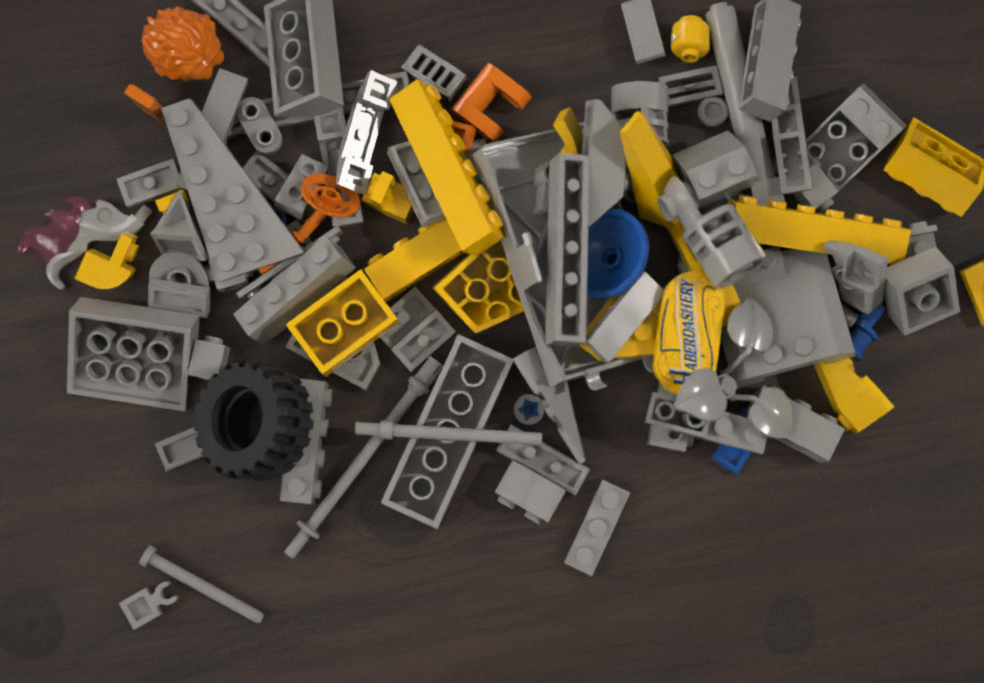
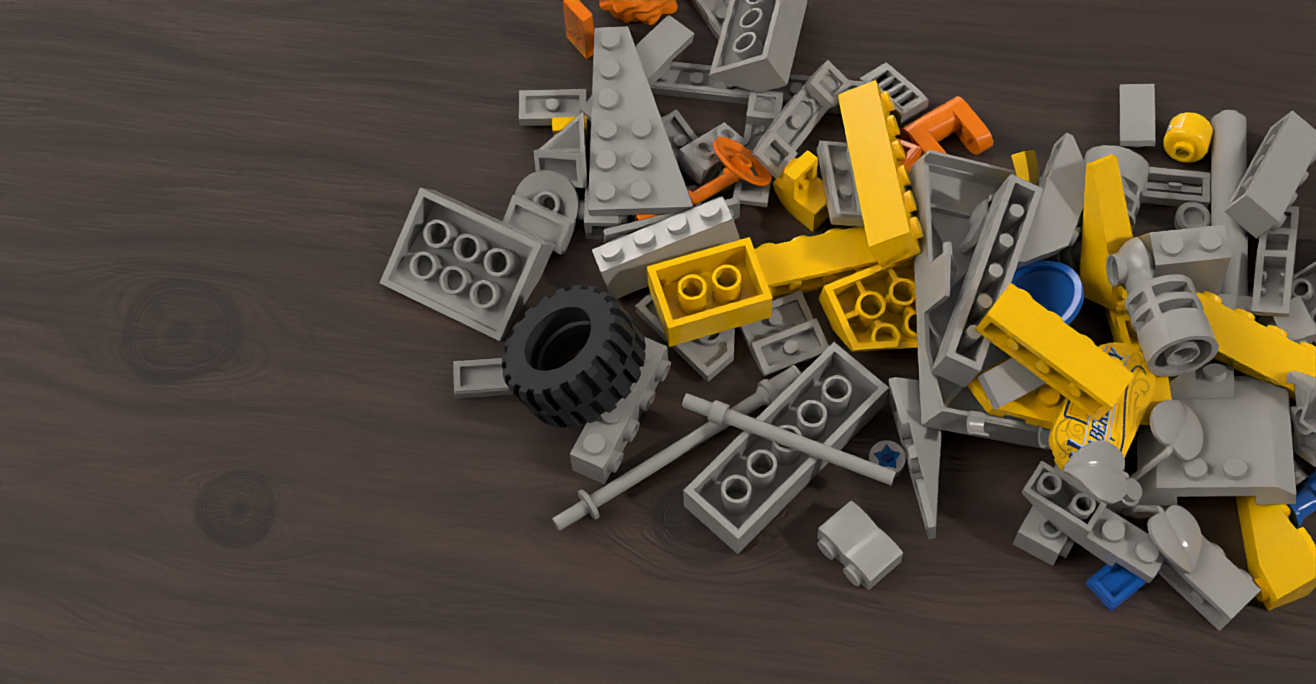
camera: 20 degrees right, 20 degrees down
(76, 229) = (456, 129): piece -> none
(109, 271) = (477, 175): yellow brick -> none
(145, 606) = (371, 526): light grey plate -> none
(150, 557) = (400, 477): light grey bar -> none
(208, 357) = (543, 283): light grey brick -> none
(258, 125) = (688, 83): light grey plate -> none
(547, 463) = (888, 517): light grey tile -> none
(597, 527) = (925, 615): light grey plate -> none
(639, 306) = (1055, 352): none -> yellow brick

